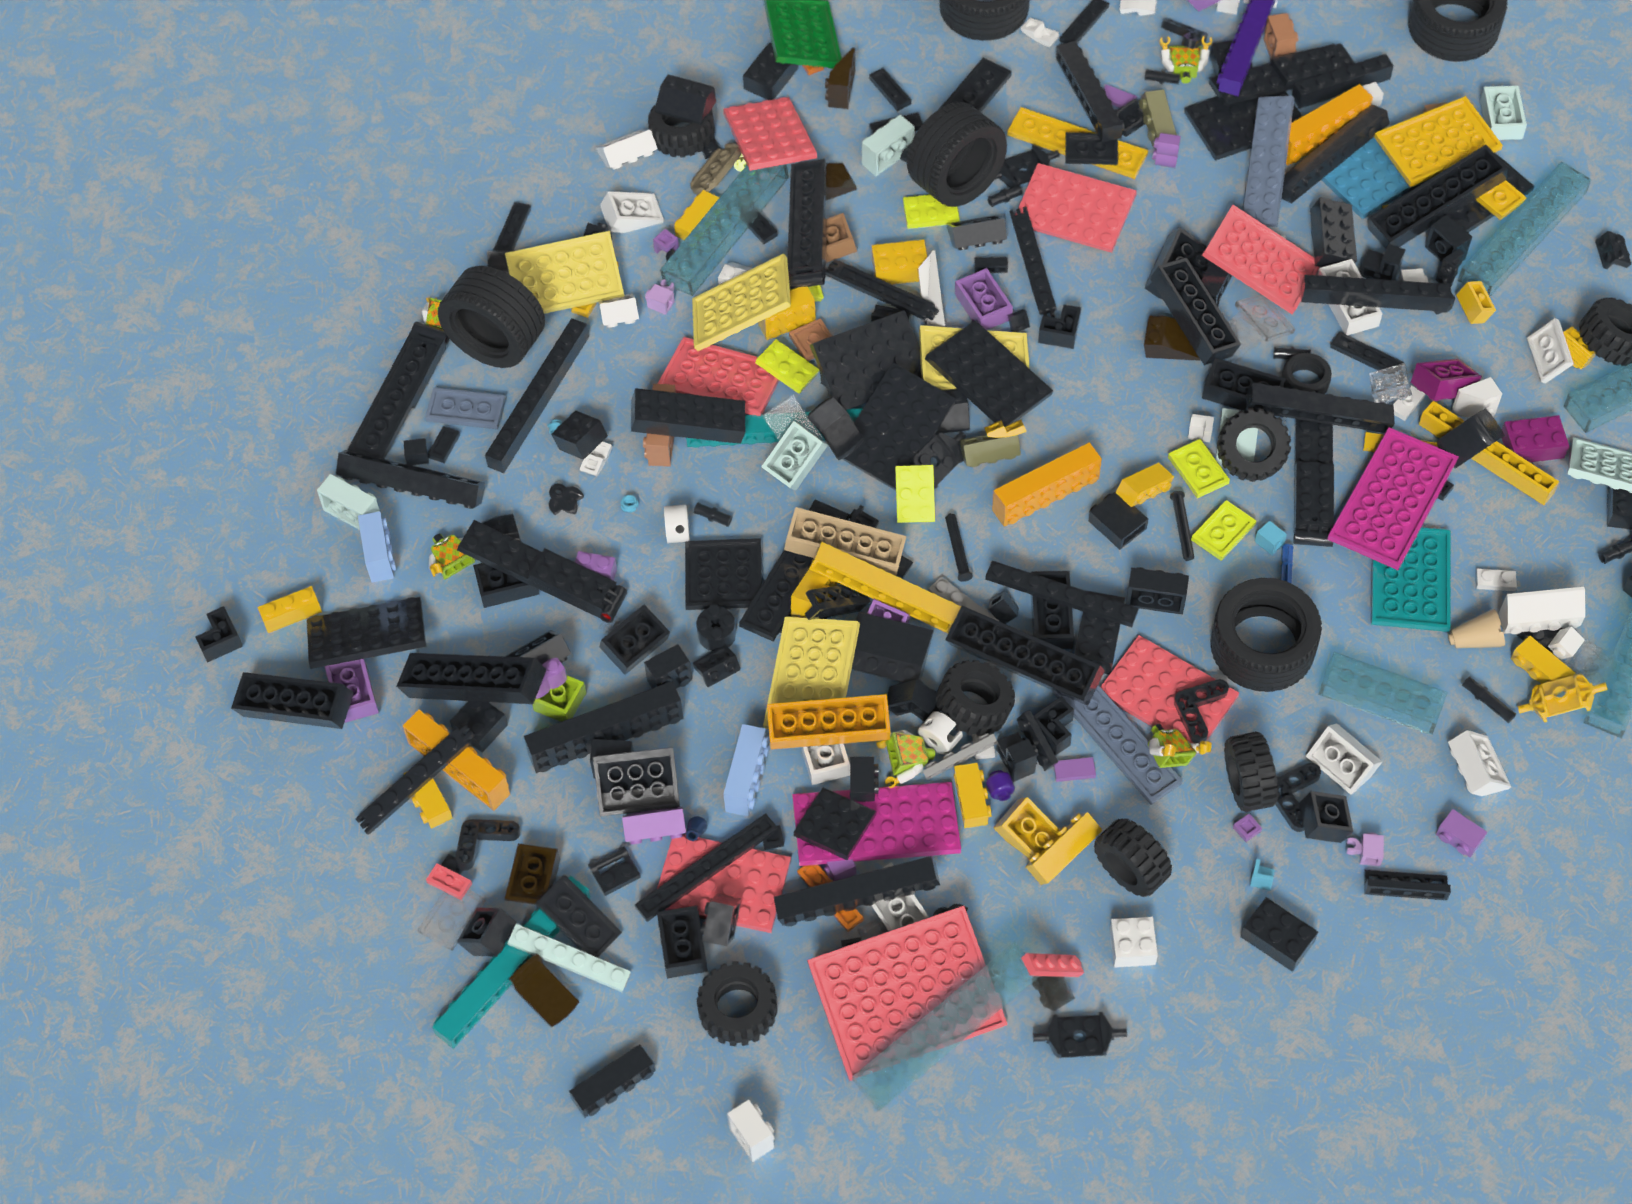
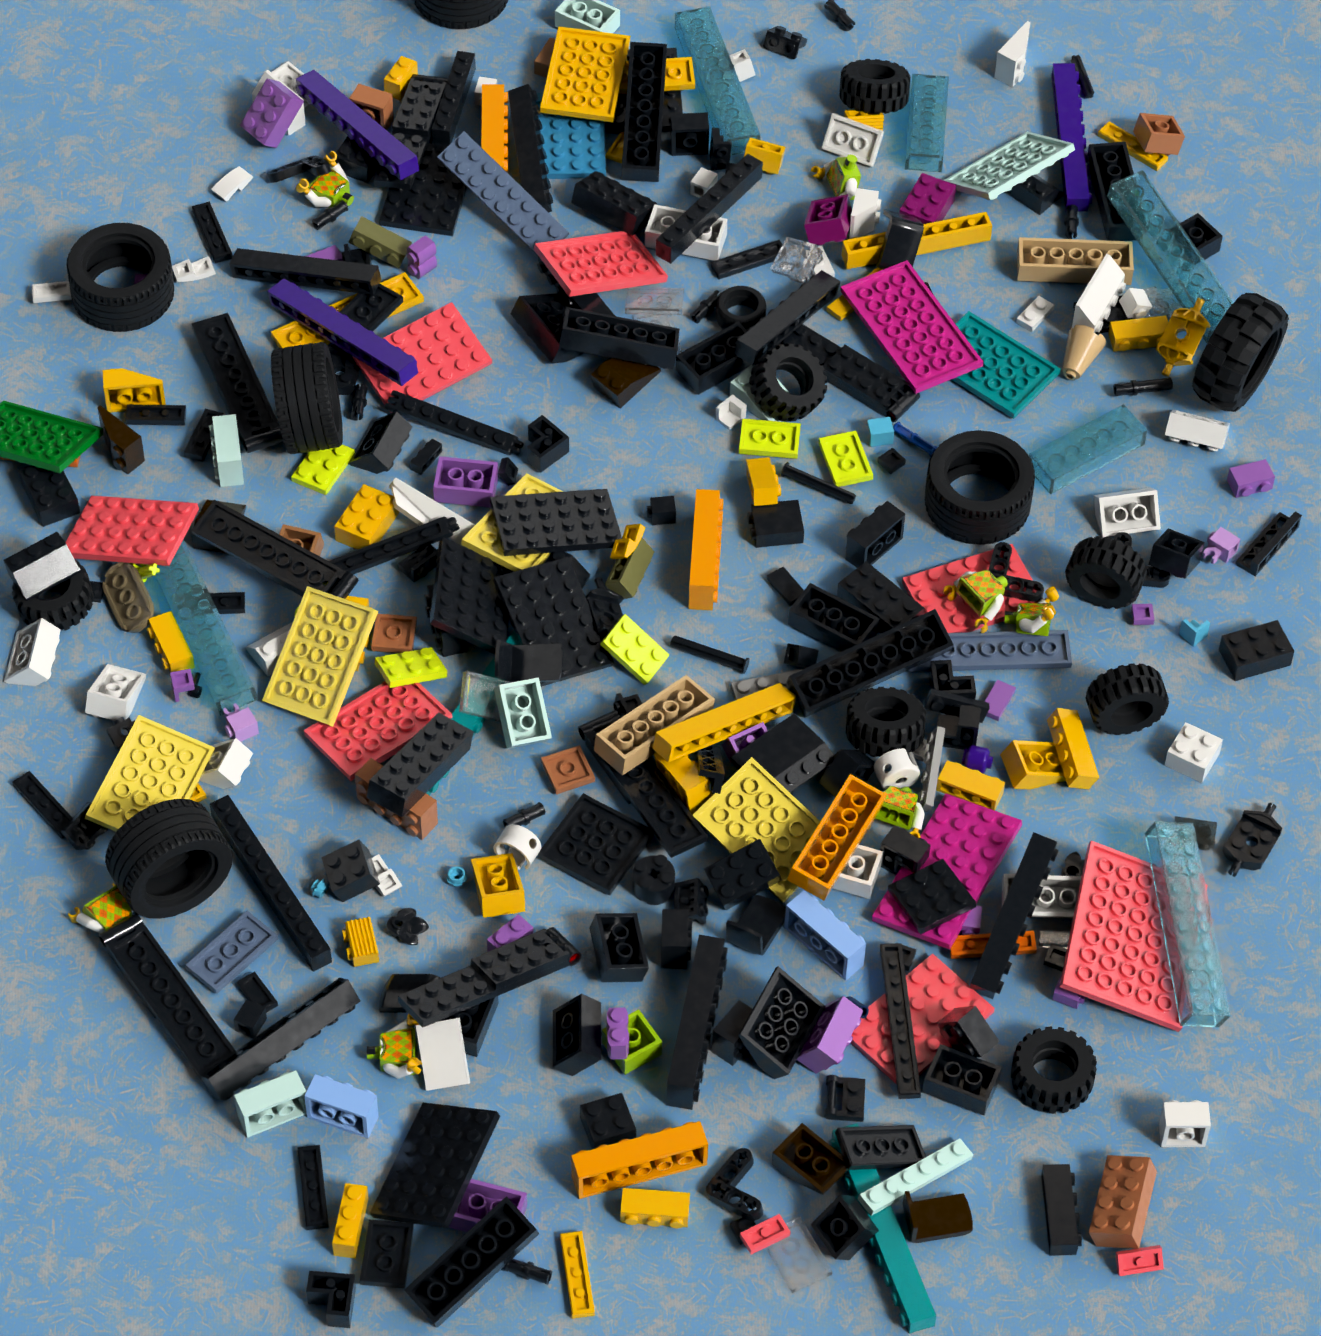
camera: 60 degrees left, 5 degrees down
(278, 648) = (387, 1254): none -> black plate
(308, 571) = (313, 1187): none -> black tile
(322, 745) = (529, 1271): none -> black pin
(341, 779) = (577, 1274): none -> yellow tile
(415, 779) = (641, 1201): black hinge -> none
(460, 583) = (443, 1054): none -> white tile
(471, 678) = (573, 1092): black brick -> none
(528, 479) = (361, 942): none -> yellow brick
(604, 1167) = (1139, 1260): none -> coral plate
(636, 532) = (498, 885): none -> yellow slope
(645, 1123) = (1123, 1202): none -> nougat brick
(725, 722) = (757, 925): none -> black piece
(757, 681) = (742, 874): none -> black brick
(774, 517) = (568, 769): none -> nougat plate
(889, 55) = (130, 387): none -> yellow slope
(1048, 144) = (343, 332): none -> dark purple brick
(1052, 965) = (1185, 813): coral plate -> none
(1062, 593) = (830, 600): black plate -> none
(1066, 438) = (662, 510): none -> black brick
(1066, 558) = (785, 585): none -> black tile
(1156, 695) = (981, 592): none -> torso
(1249, 562) = (891, 460): none -> black plate
(1331, 35) = (399, 77): none -> yellow brick
(1383, 266) = (677, 189): black brick -> none
(1506, 365) = (841, 174): none -> torso
(1557, 236) = (742, 65): none -> white panel
(1565, 742) = (1240, 352): none -> black tyre
(1569, 567) = (1070, 259): none -> tan brick

